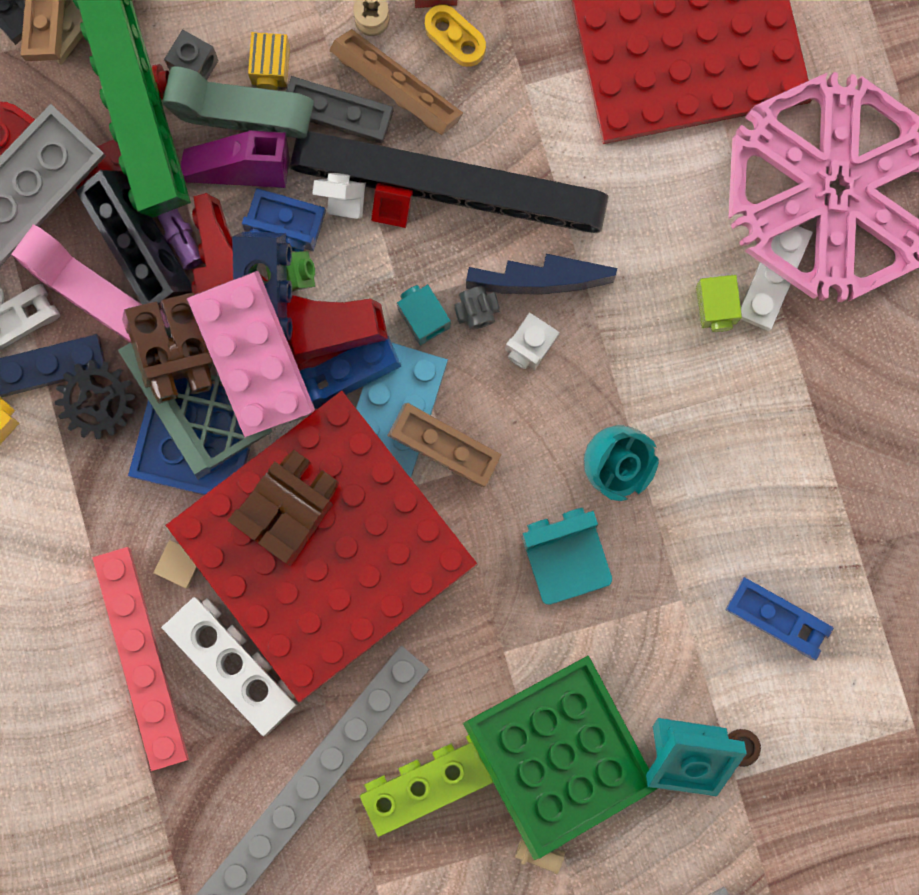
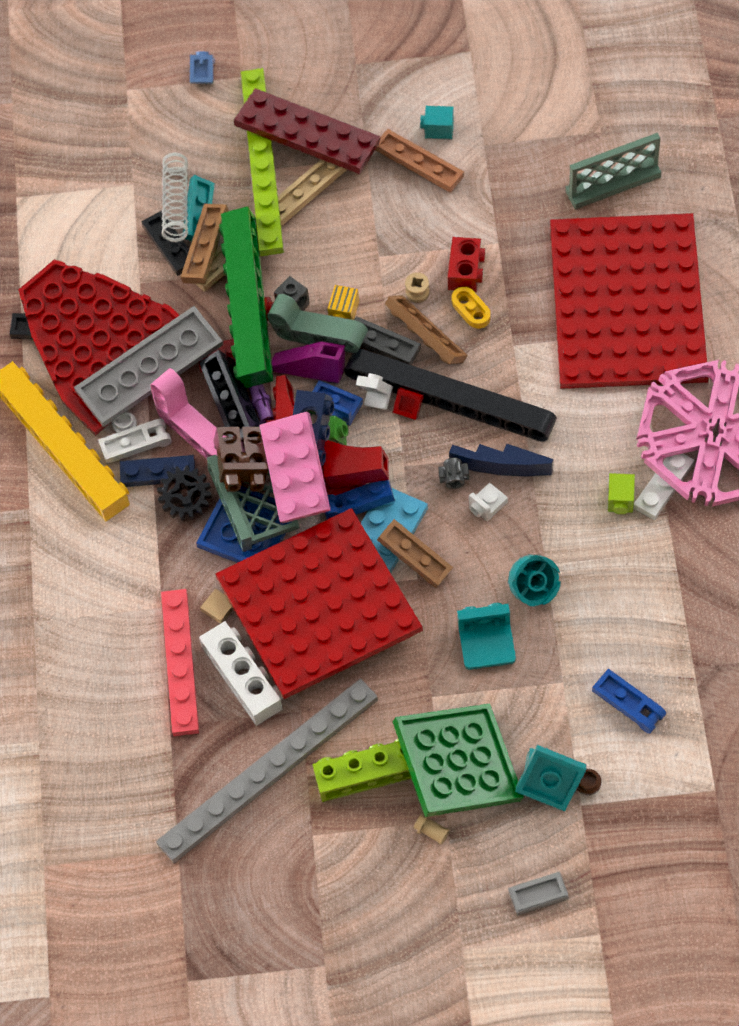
camera: 15 degrees right, 20 degrees down
(284, 509) = (298, 568): reddish brown hips -> none
(423, 313) = (416, 473): teal brick -> none

